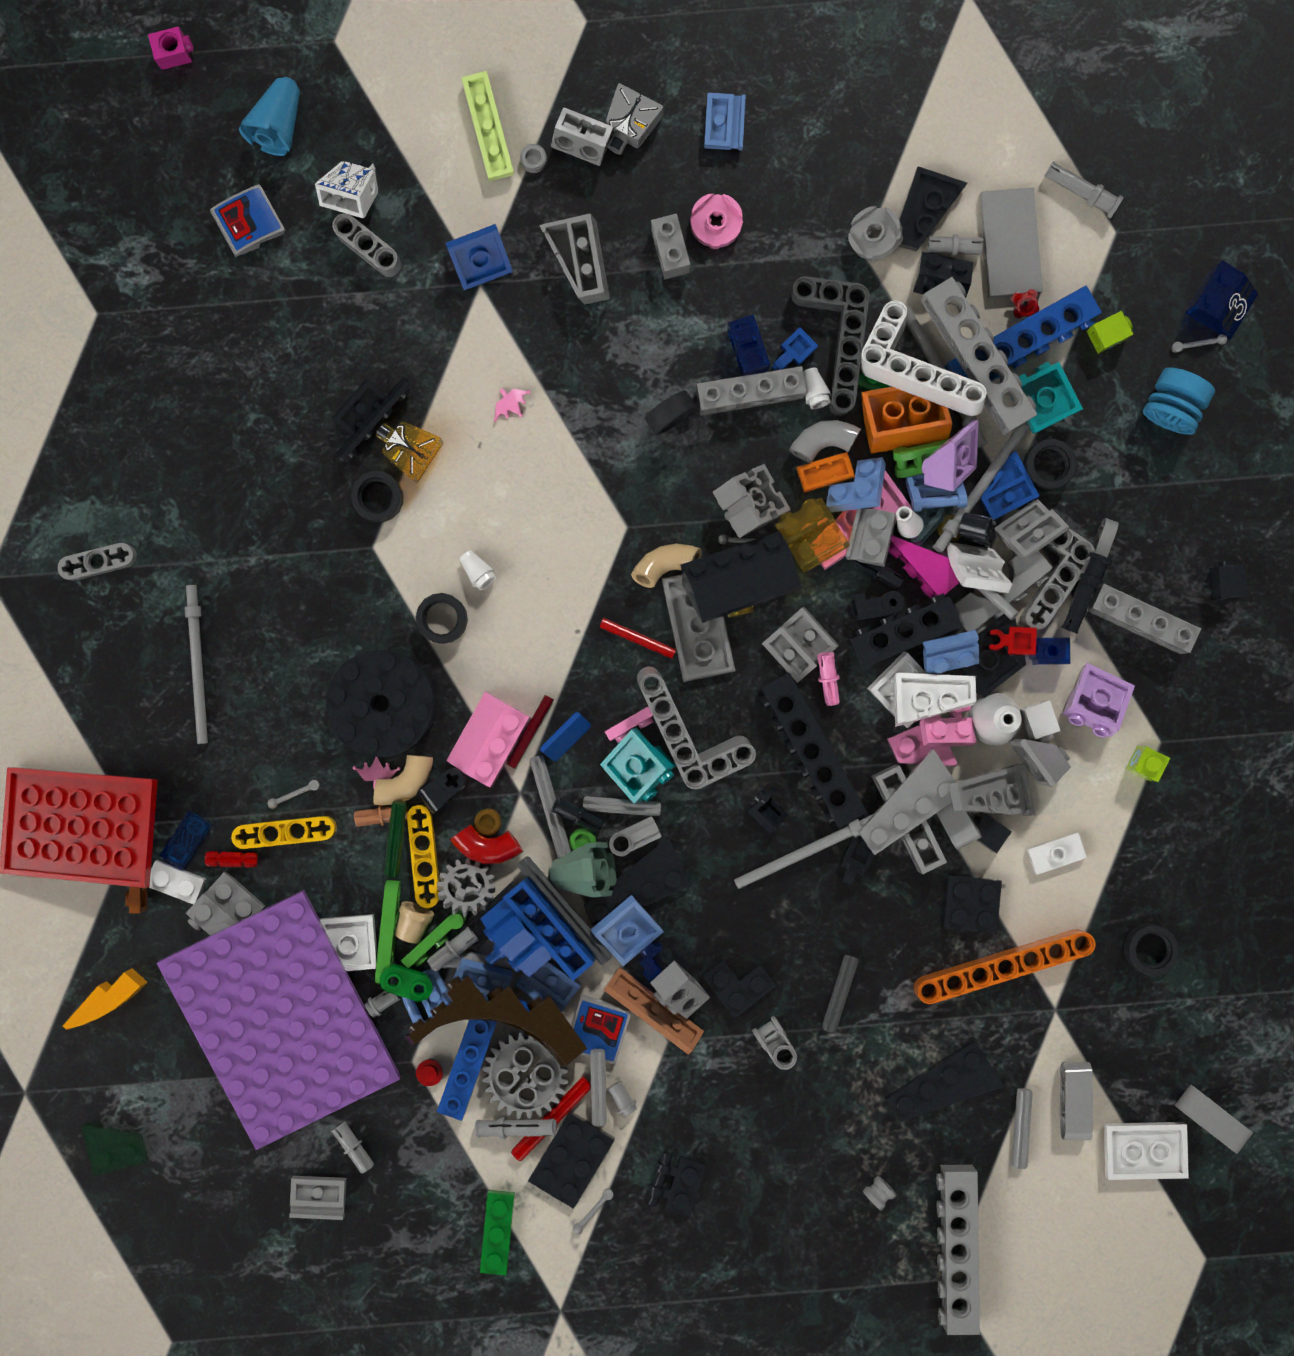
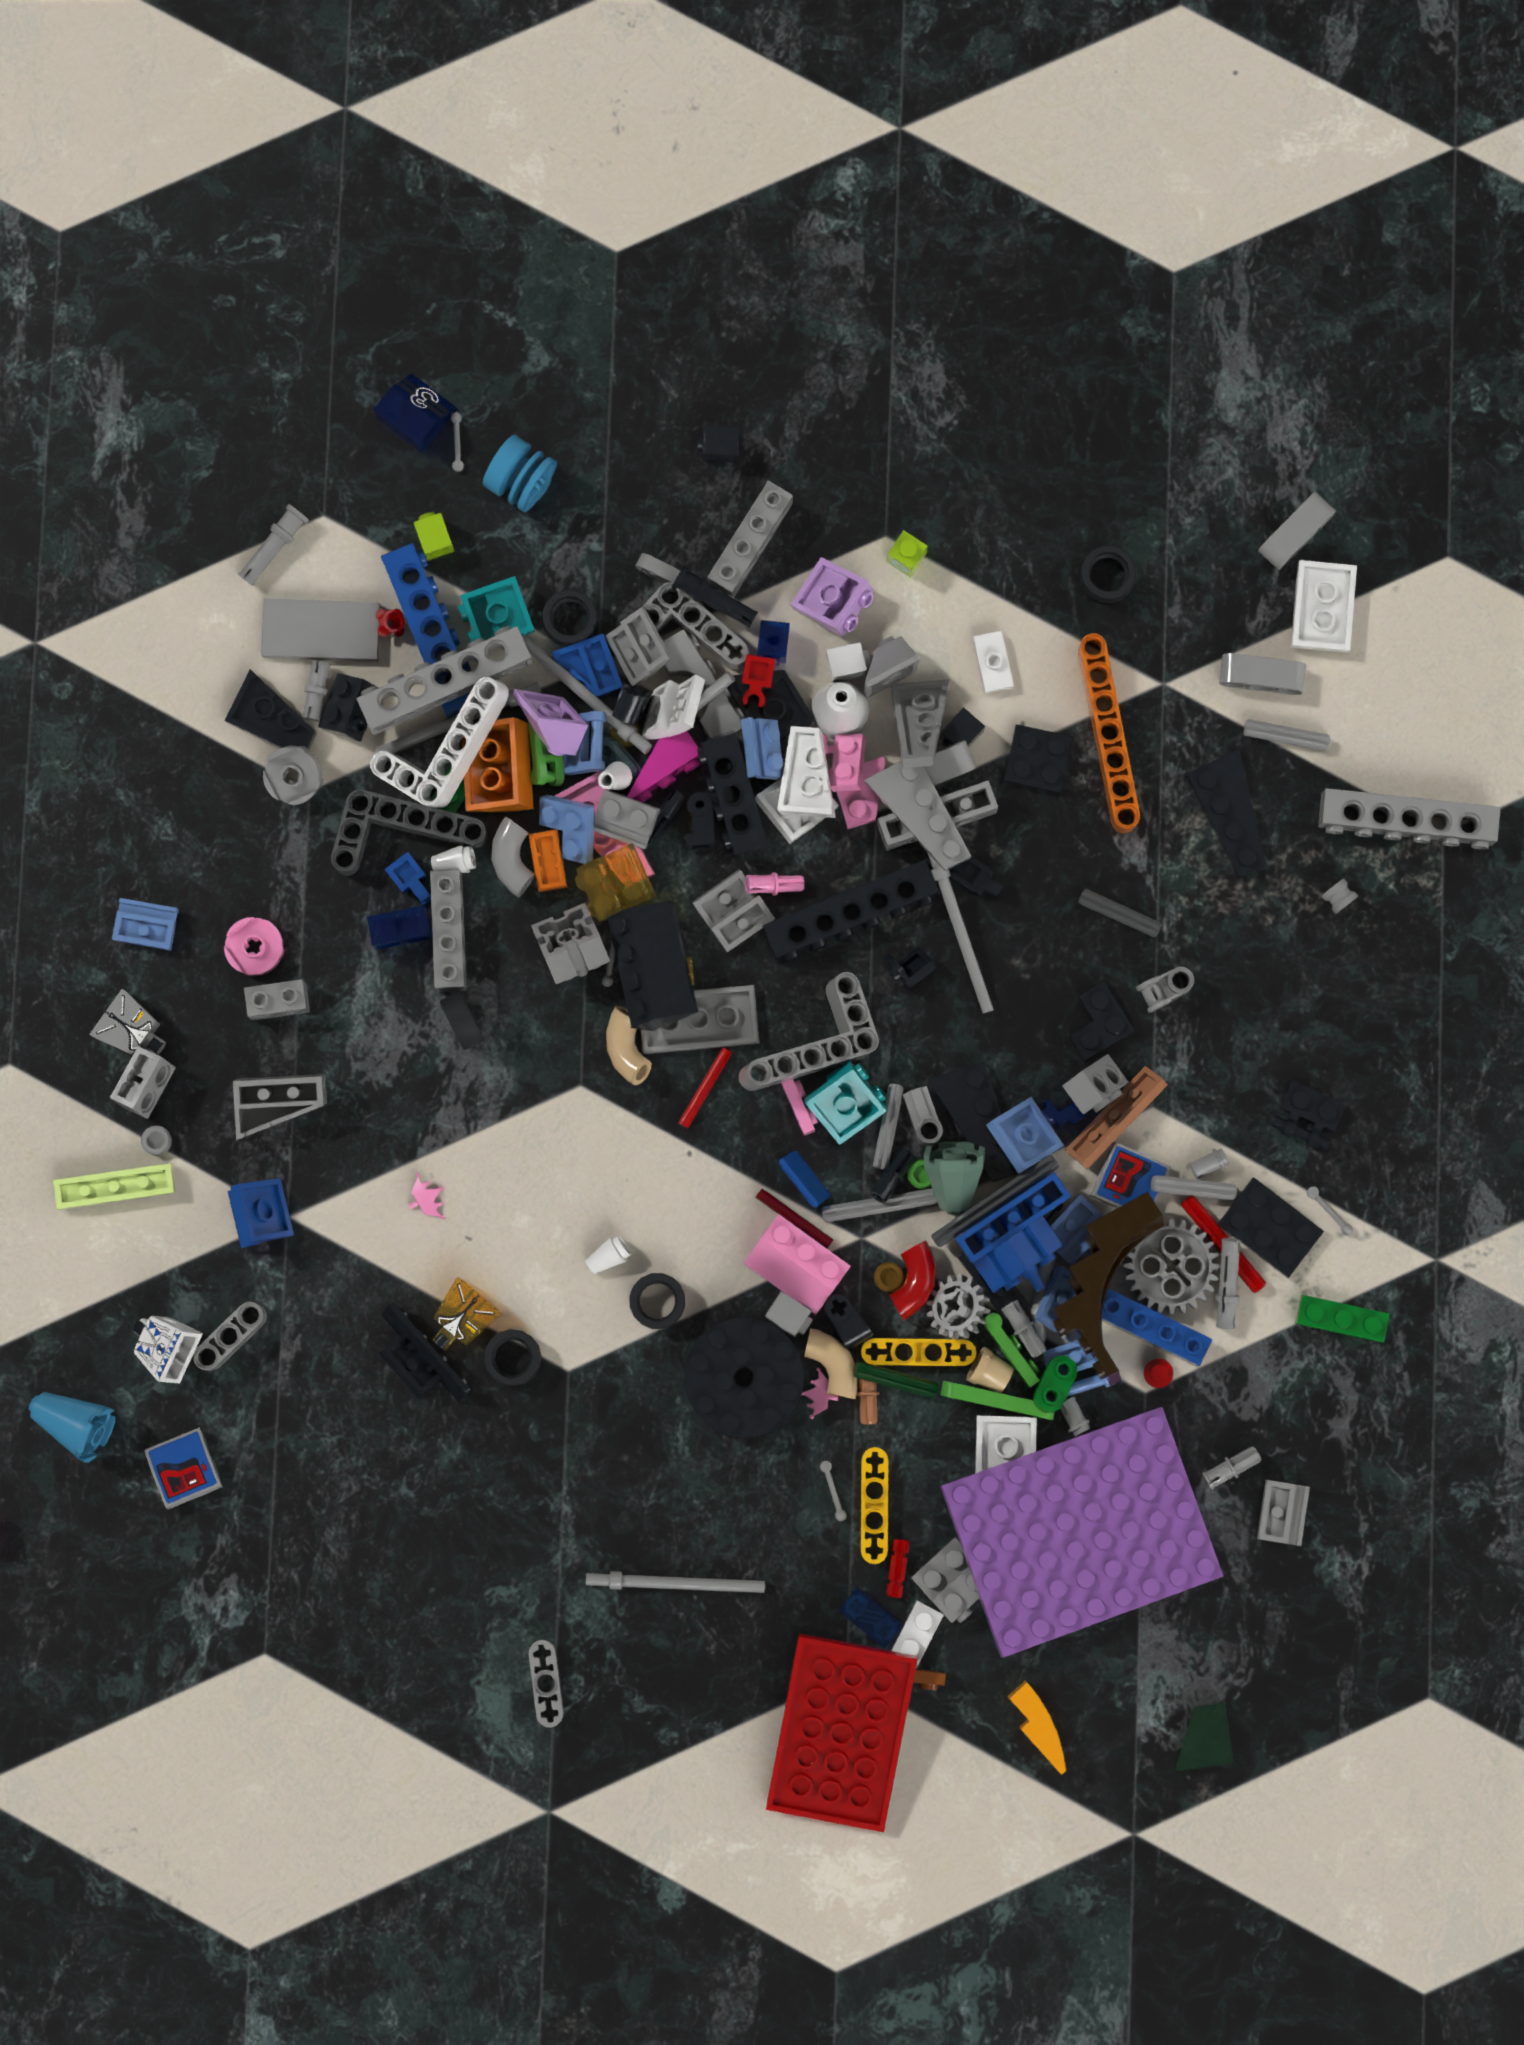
camera: 85 degrees left, 5 degrees down
(440, 737) = (789, 1315): none -> light grey brick

